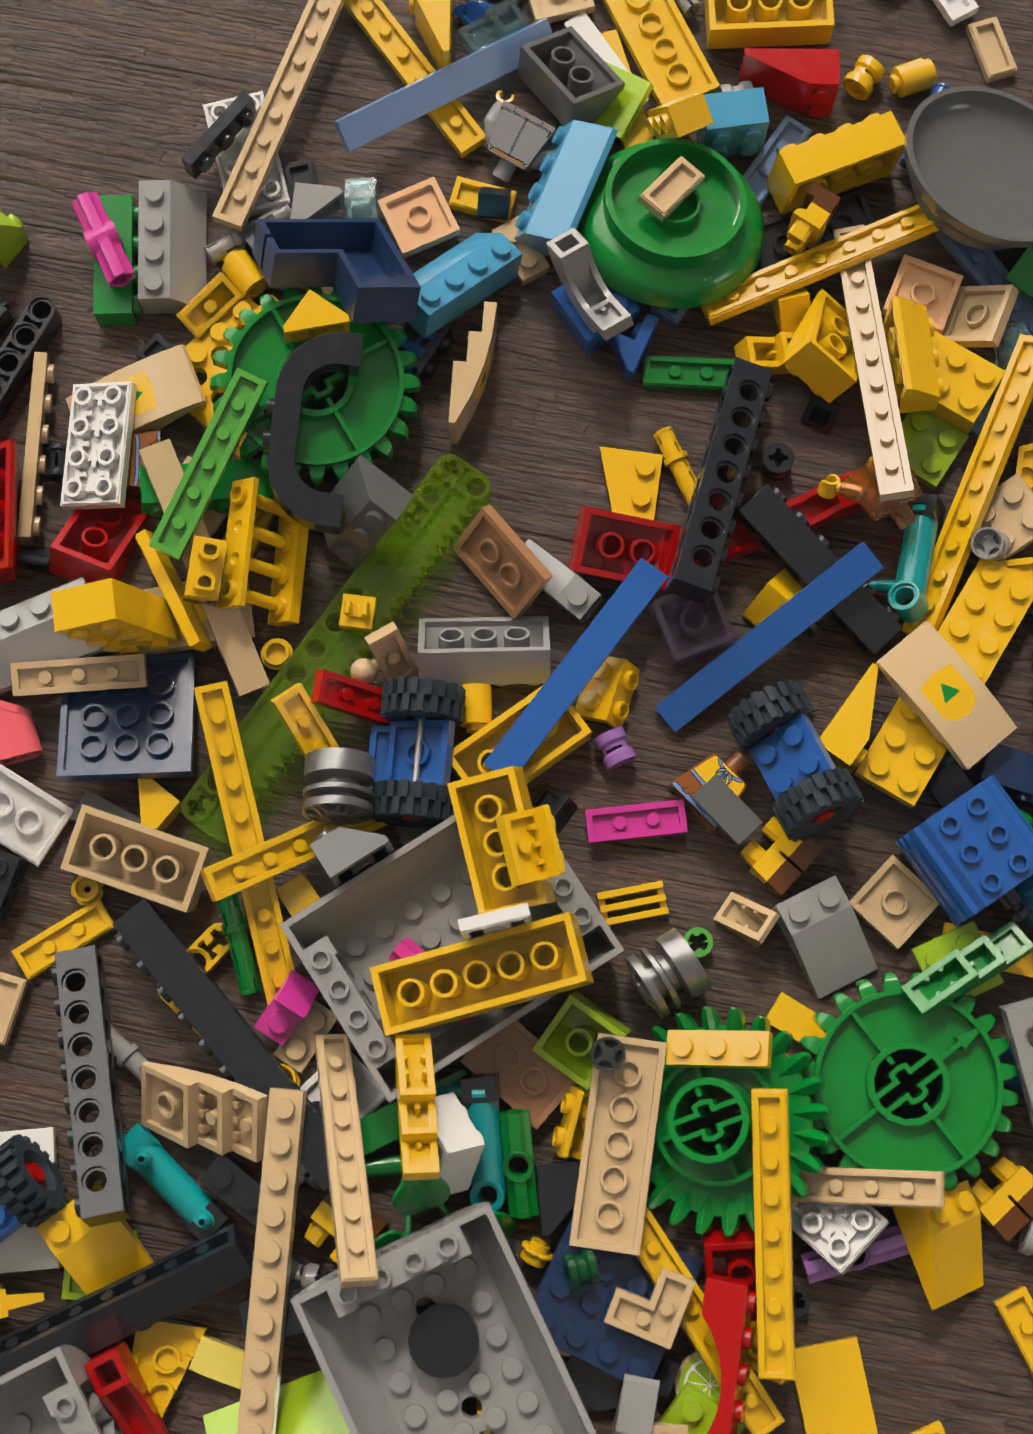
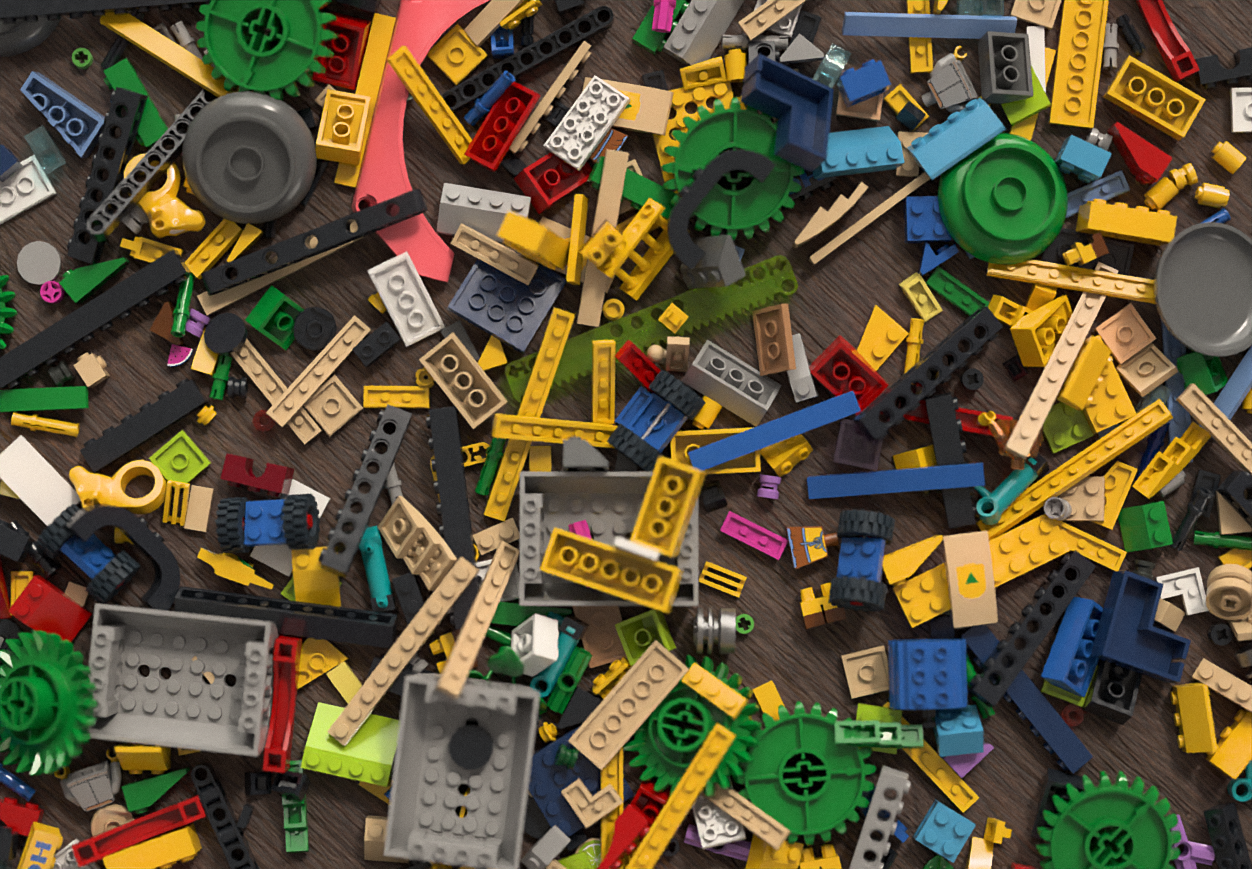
camera: 30 degrees right, 10 degrees up
(208, 464) = (641, 184): bright green plate -> none
(287, 1007) = (496, 515): dark pink slope -> none
(314, 318) = (755, 135): yellow slope -> none
(338, 786) = (601, 412): flat silver wheel -> none
(411, 190) = (863, 83): none -> blue brick
(416, 1107) = (533, 618): yellow slope -> none
(519, 359) = (869, 218): none -> tan tile
(530, 845) = (681, 521): yellow bracket -> none
(585, 287) = (925, 213): light grey arch -> none
(608, 1054) = (650, 657): pearl dark grey wheel -> none
(647, 404) = (920, 297): none -> light yellow slope
(671, 188) = (1013, 184): tan tile -> none
(679, 117) = (1049, 139): yellow brick -> none
(726, 810) = (806, 563): dark grey tile -> none
(746, 919) = (779, 628): tan slope -> none
(825, 937) = (816, 666): light grey slope -> none
(851, 106) = (1160, 194): none -> yellow brick
(899, 24) = (1228, 156): none -> yellow brick

